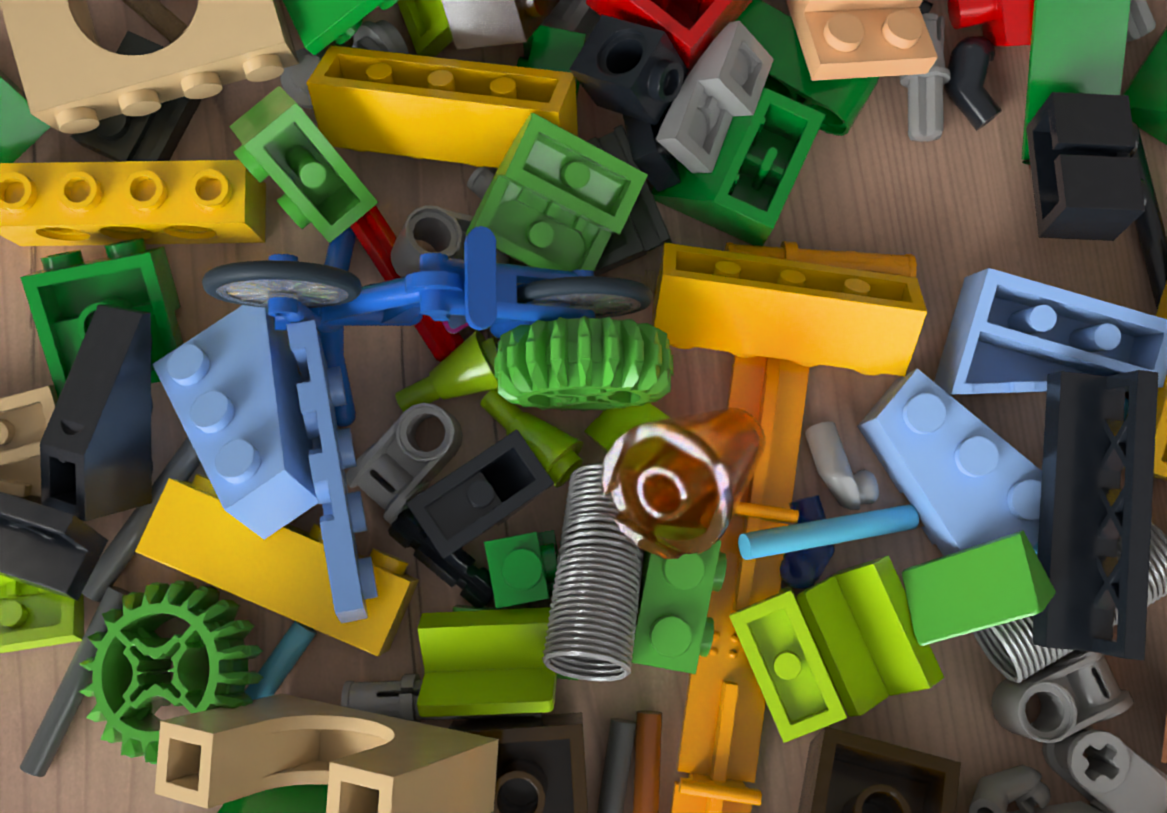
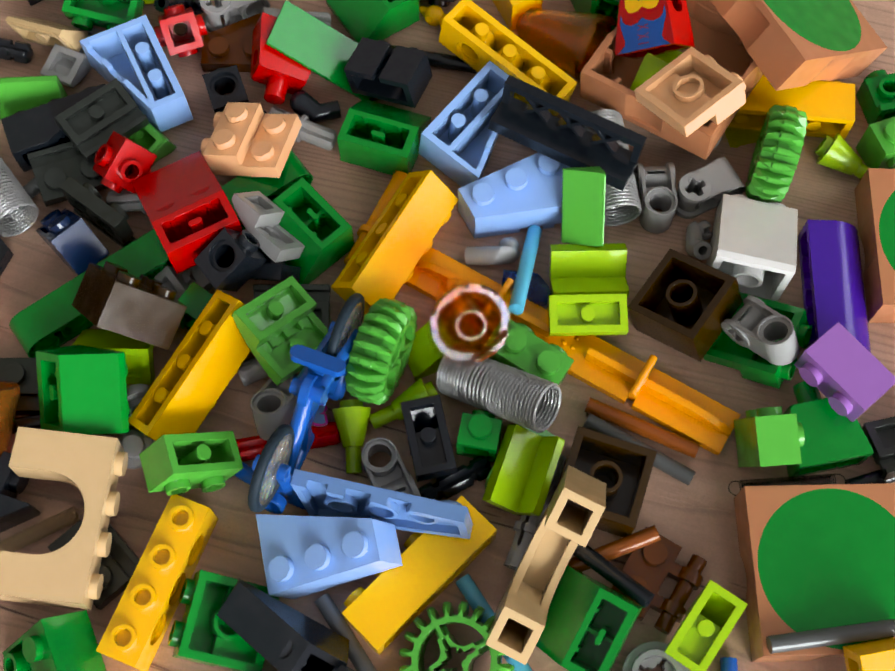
camera: 65 degrees left, 15 degrees down
(967, 207) = (381, 137): none -> green slope

